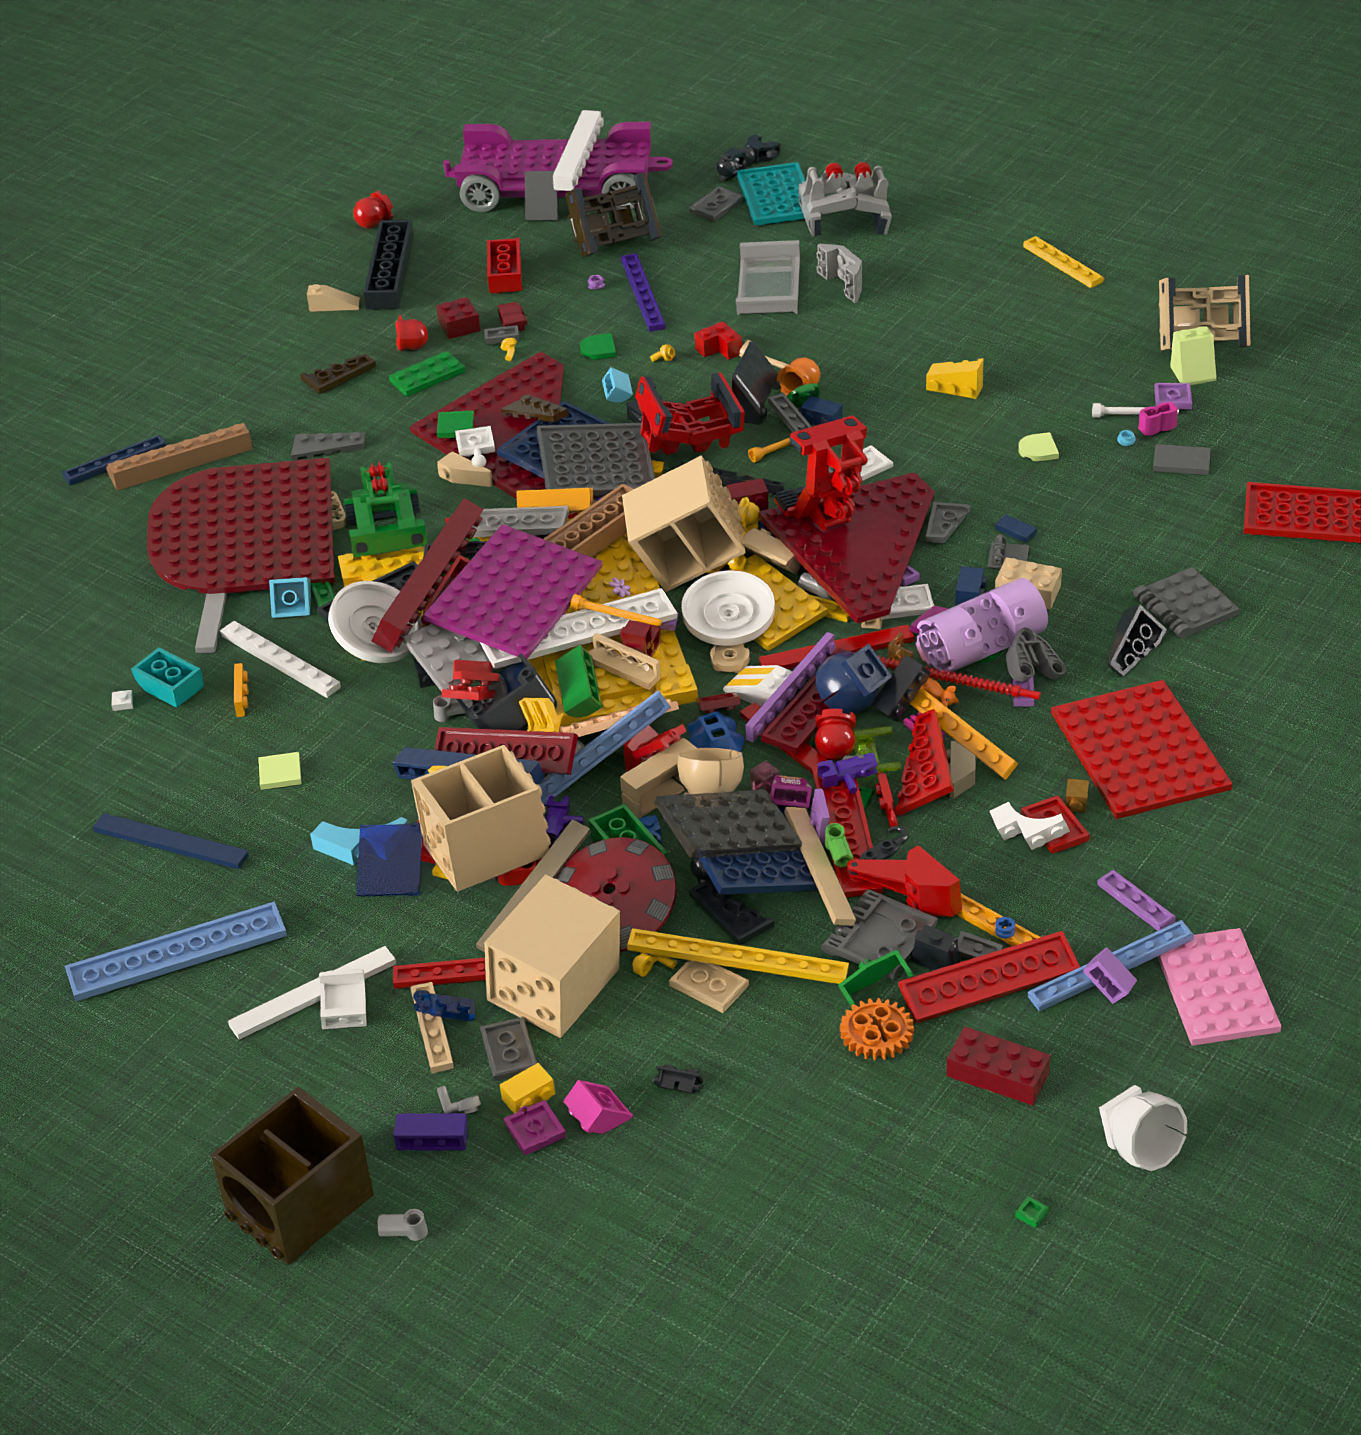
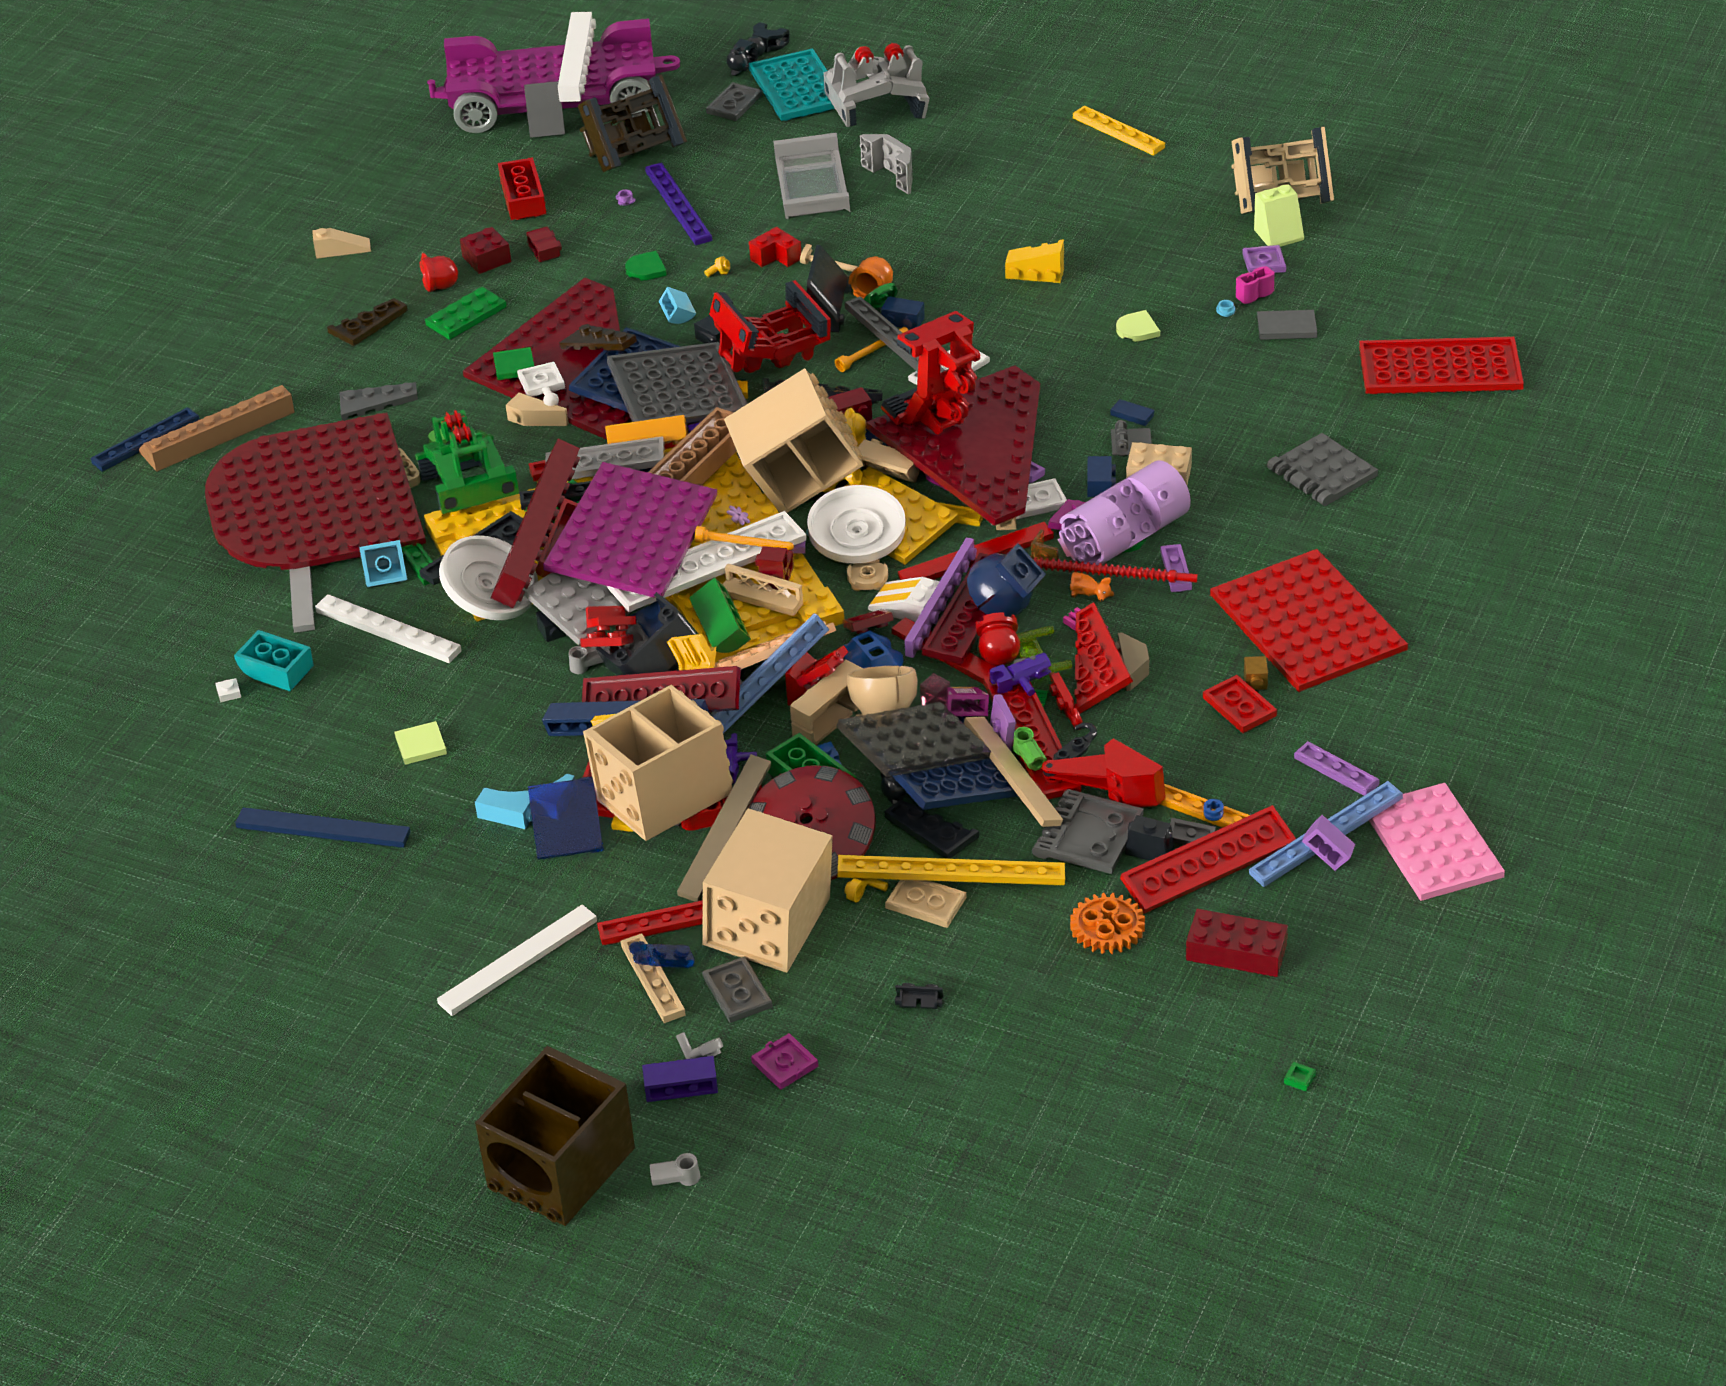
camera: 10 degrees left, 0 degrees up
(175, 951) = (360, 936): medium blue plate -> none
(240, 690) = (356, 665): light orange plate -> none
(342, 999) = (553, 961): white panel -> none
(372, 210) = (361, 142): red tile -> none
(389, 265) = (394, 199): black brick -> none
(499, 334) = (537, 263): dark grey plate -> none
(509, 346) = (548, 274): yellow plate -> none
(527, 1088) = (768, 1024): yellow brick -> none
(596, 1107) = (842, 1034): dark pink slope -> none
(809, 584) = (937, 492): light grey piece -> none
(871, 973) = (1091, 869): green piece -> none
(901, 688) = (1056, 586): black brick -> none
(945, 520) = (1058, 411): dark grey wing -> none
(966, 735) = (1119, 619): light orange tile -> none
(1032, 652) = (1180, 537): dark grey connector -> none
(1035, 831) = (1223, 711): white arch -> none
(1099, 410) = (1192, 282): white piece -> none
(1134, 638) = (1279, 510): black wedge -> none
(1138, 1127) = (1387, 983): white plate -> none

